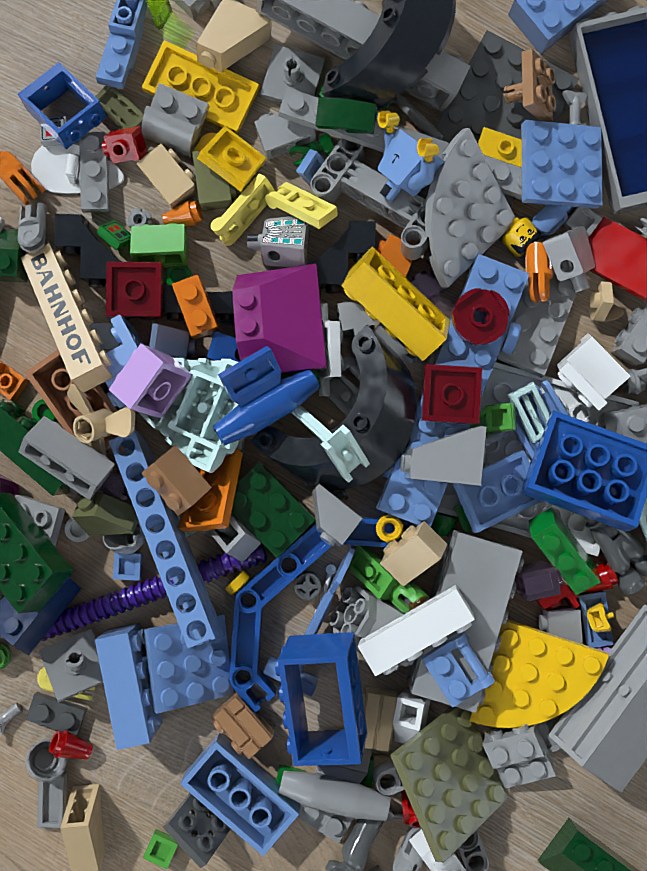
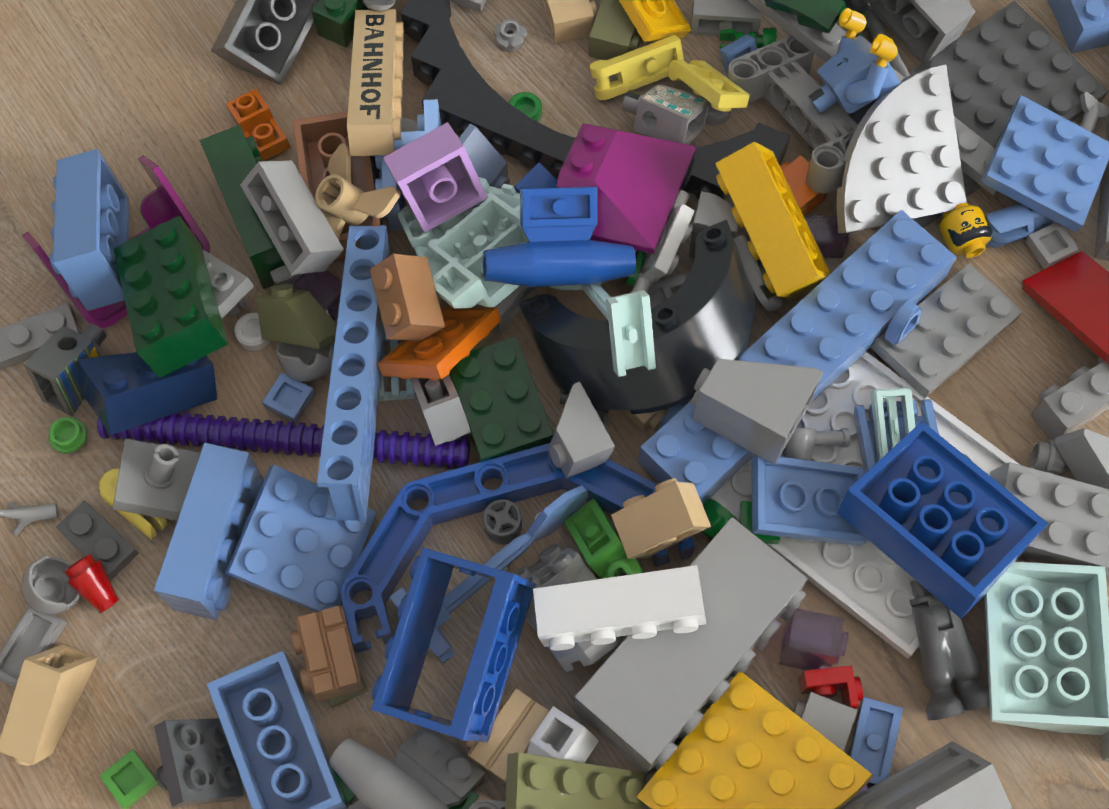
camera: 25 degrees right, 20 degrees down
(115, 234) = (474, 35): green tile -> none
(134, 289) = (468, 87): dark red plate -> none
(160, 244) = (520, 64): bright green brick -> none
(186, 213) = (564, 47): orange cone -> none
(196, 307) = (529, 130): orange brick -> none
(237, 583) = (412, 473): yellow tile -> none
(398, 528) = (639, 474): yellow plate -> none
(449, 673) = (638, 689): medium blue plate -> none
(451, 394) = (797, 336): dark red plate -> none
(496, 318) = (866, 290): dark red plate -> none
(497, 417) = (841, 412): bright green tile -> none
(501, 146) = (979, 117): yellow plate -> none
(535, 87) = (1048, 65): medium nougat plate -> none
(539, 271) = (971, 267): orange arm -> none
(564, 551) = (866, 618): green brick -> none
(571, 257) = (1019, 266): light grey torso -> none
(591, 372) = (993, 407): white bracket -> none
(598, 618) = (878, 735): yellow piece -> none
(602, 304) = (1038, 340): tan plate -> none
(607, 578) = (899, 689): red cone -> none

